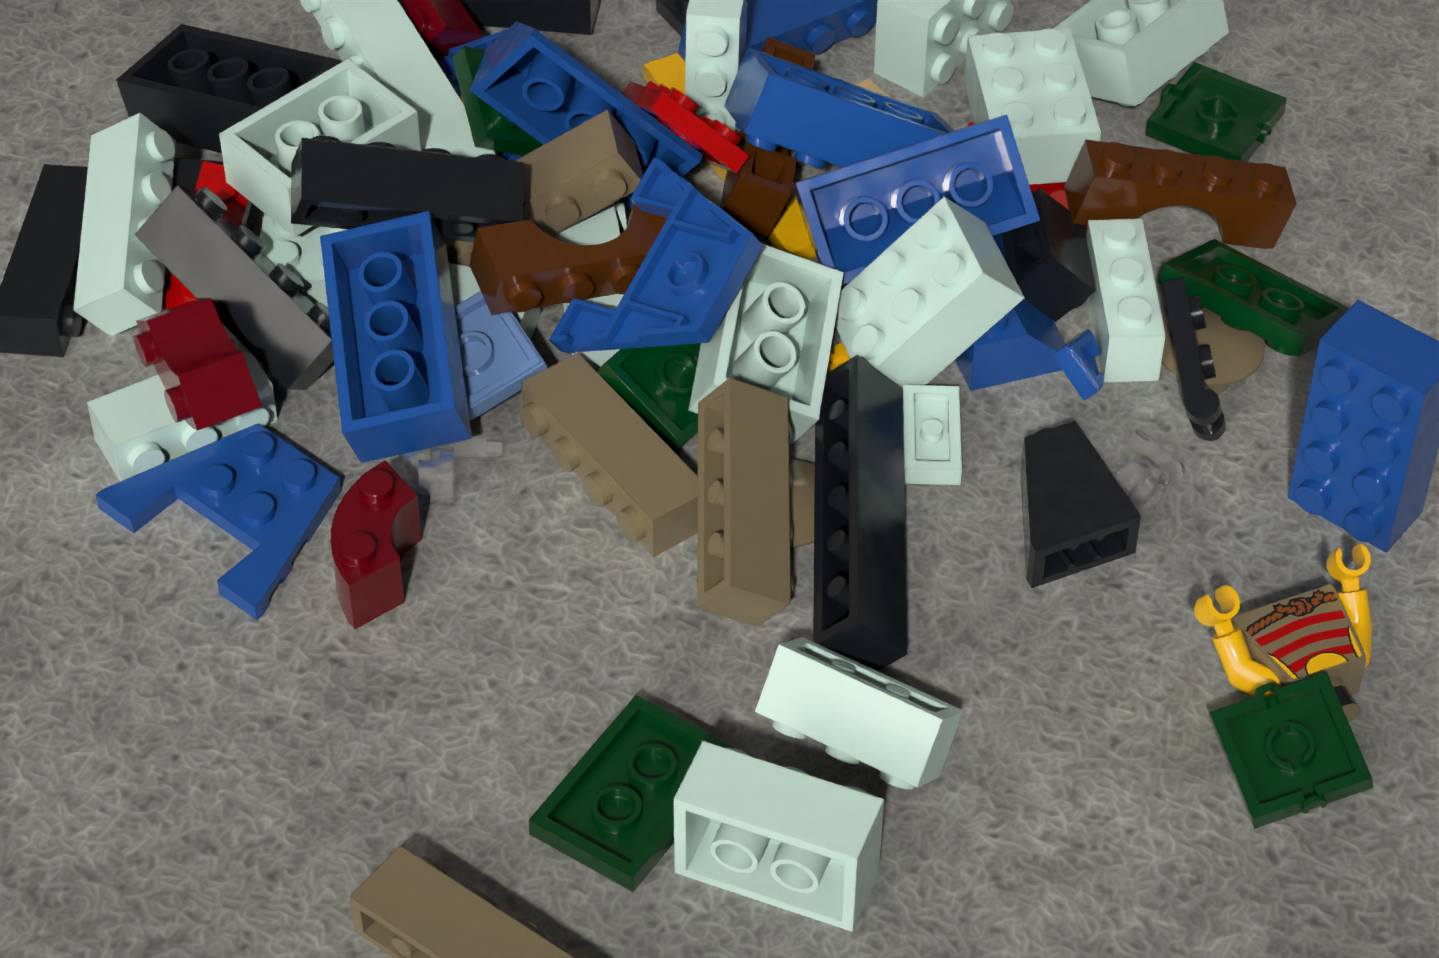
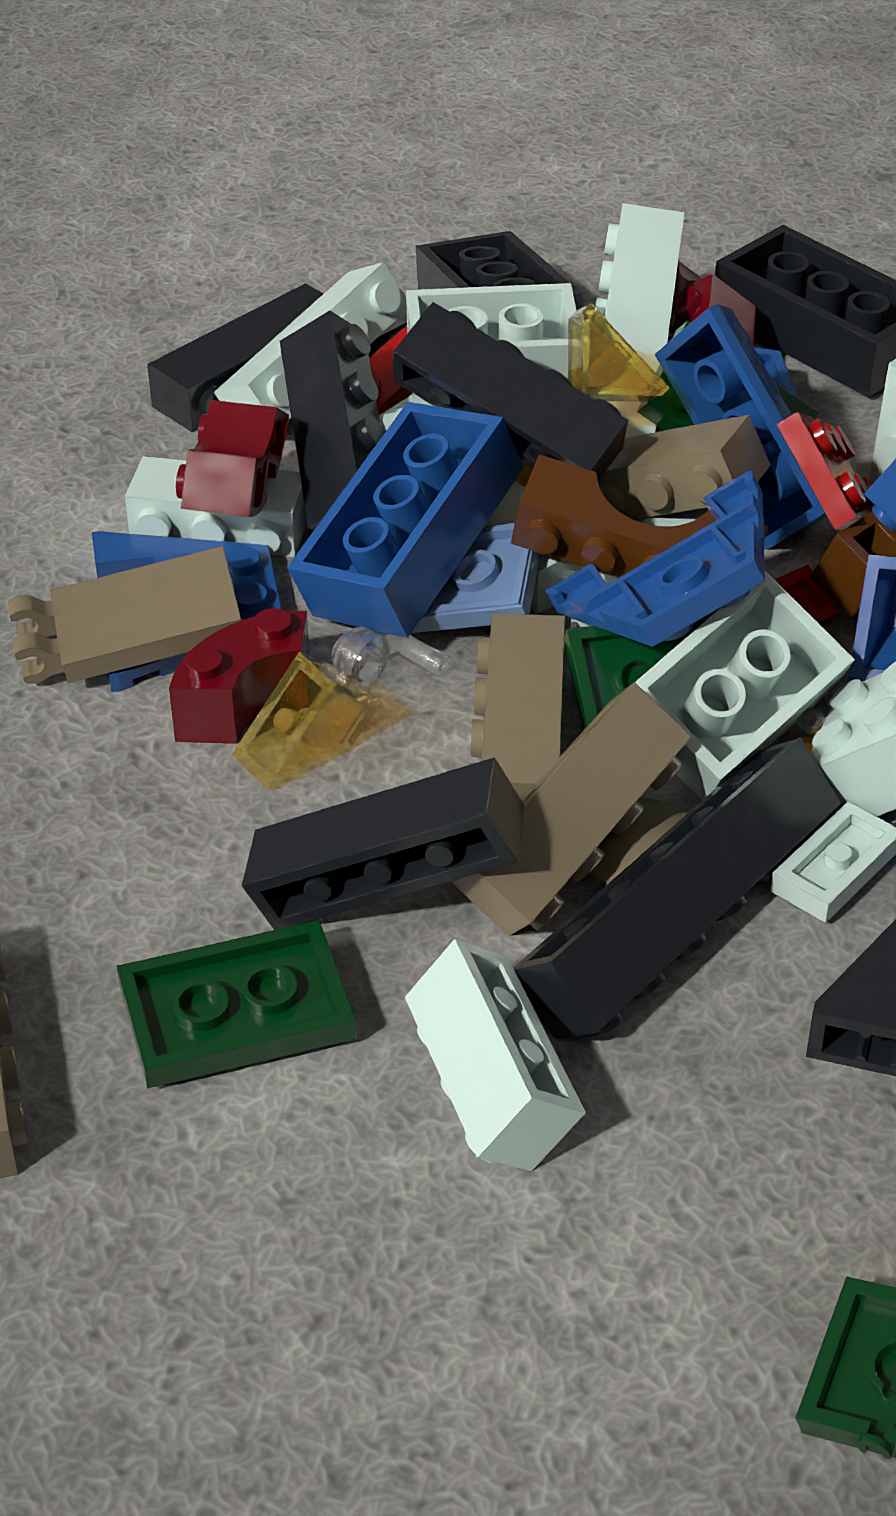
camera: 40 degrees right, 5 degrees down
(229, 547) = (125, 617): none -> dark tan tile
(451, 117) = (605, 363): none -> clear yellow slope
(458, 555) = (305, 722): none -> clear yellow slope
(649, 609) = (385, 845): none -> black brick
(777, 835) = (293, 1112): light aqua brick -> none

